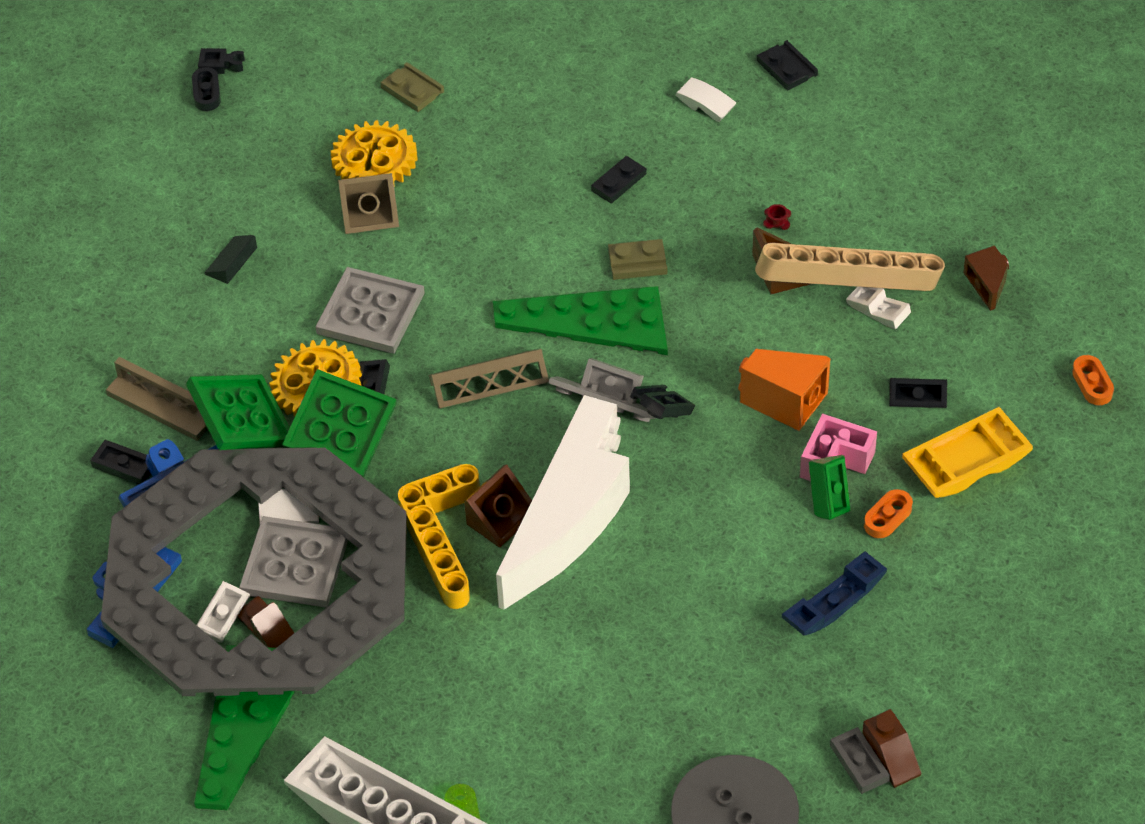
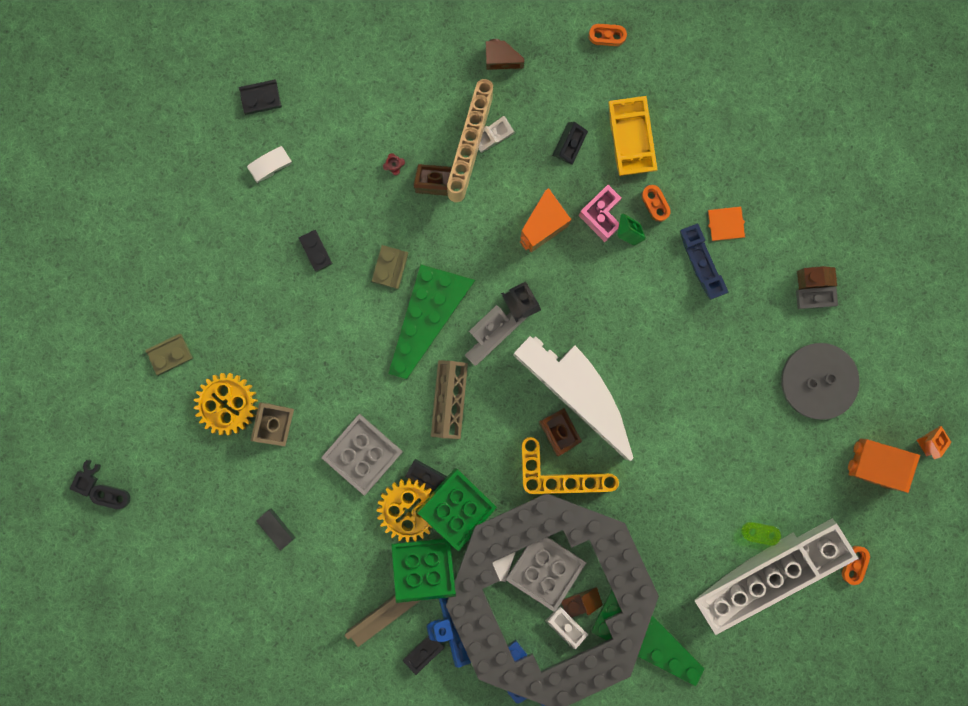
camera: 70 degrees left, 35 degrees up
(909, 613) = (726, 223): none -> orange piece

